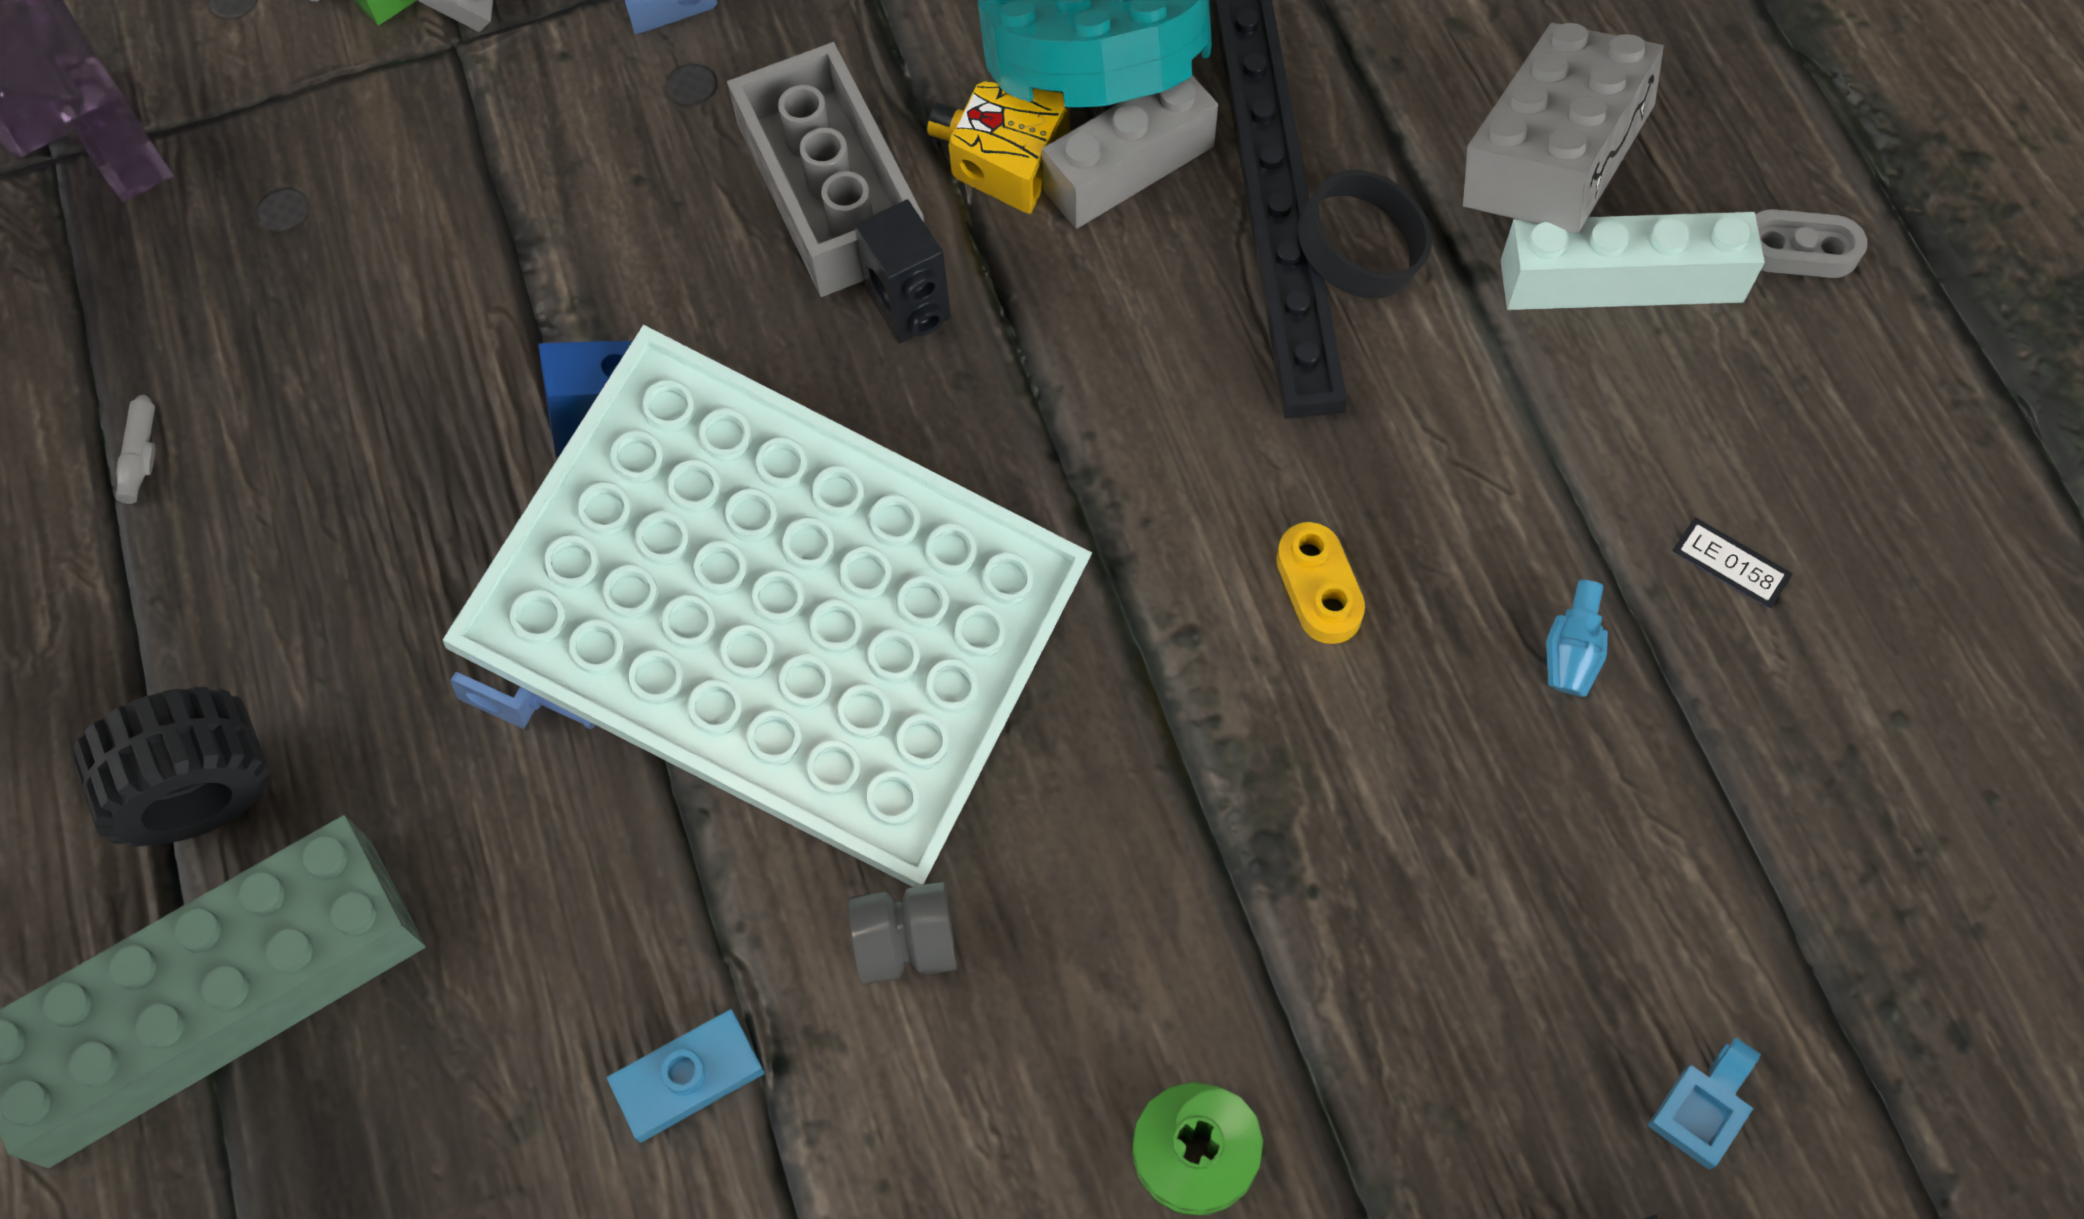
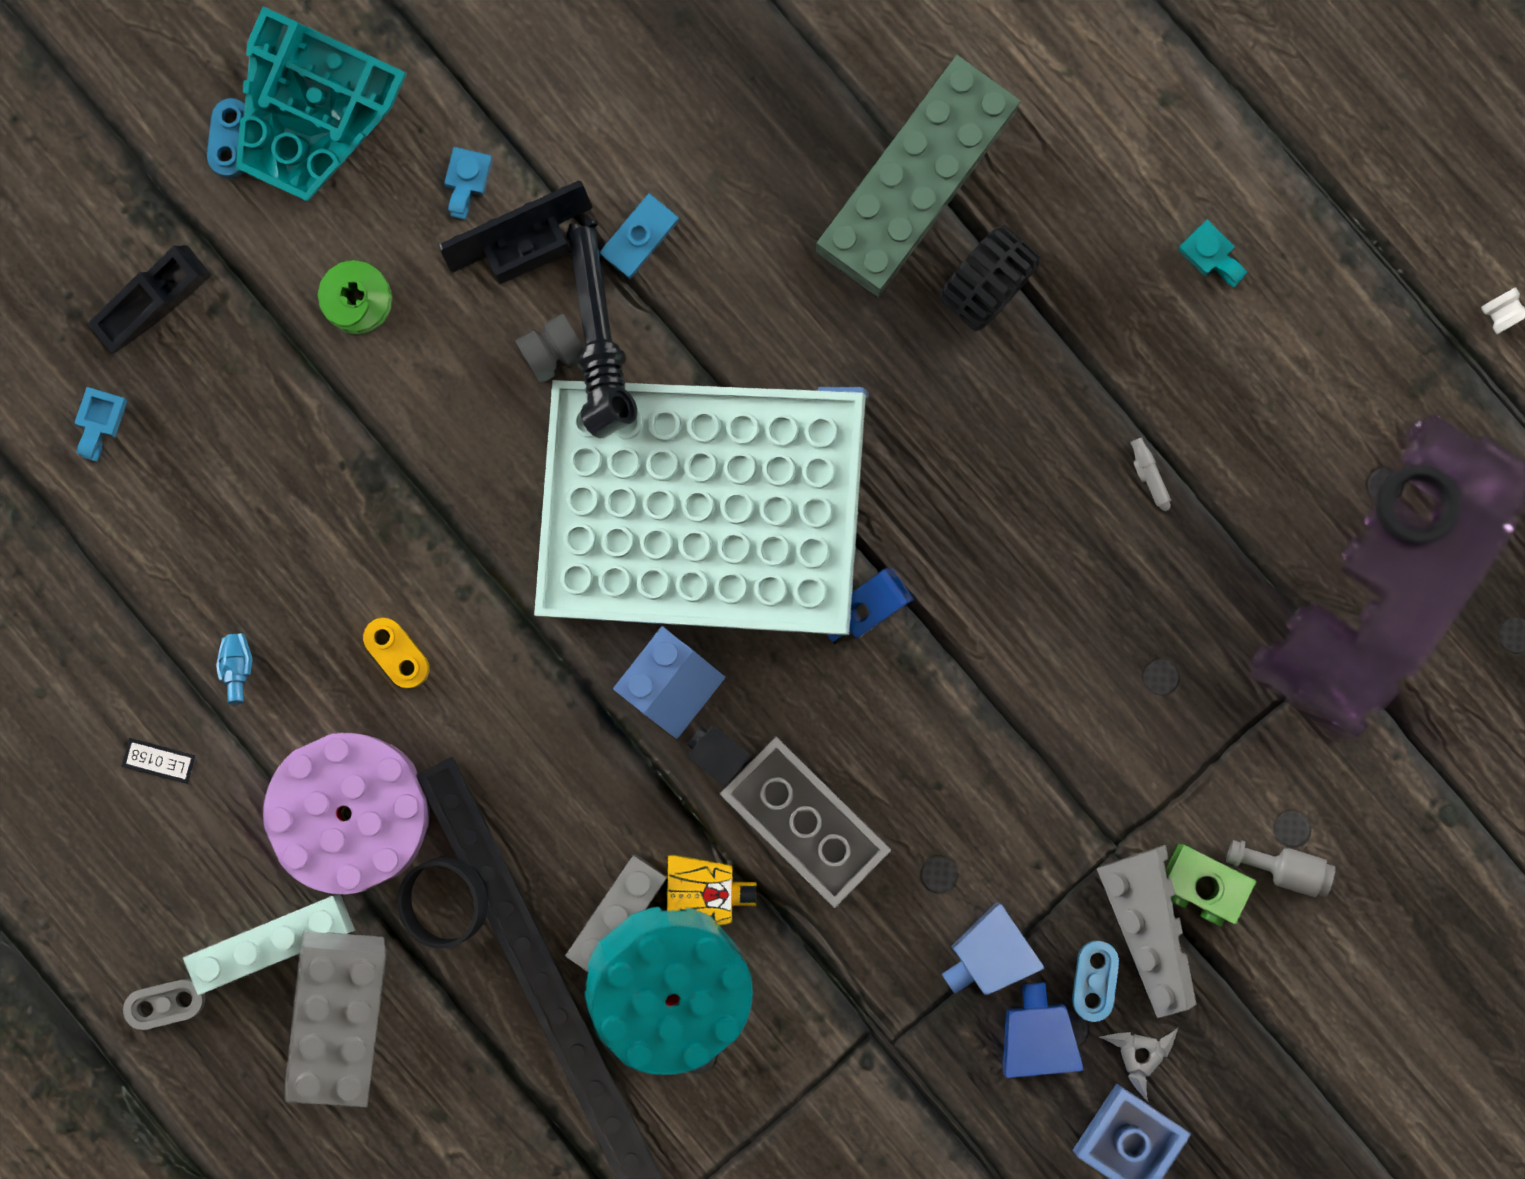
camera: 160 degrees right, 20 degrees up
(845, 779) = (601, 360): none -> black piece
(876, 1136) = (520, 237): none -> black bracket
(942, 407) = (669, 682): none -> medium blue slope
(1467, 384) = (308, 820): none -> lavender piece

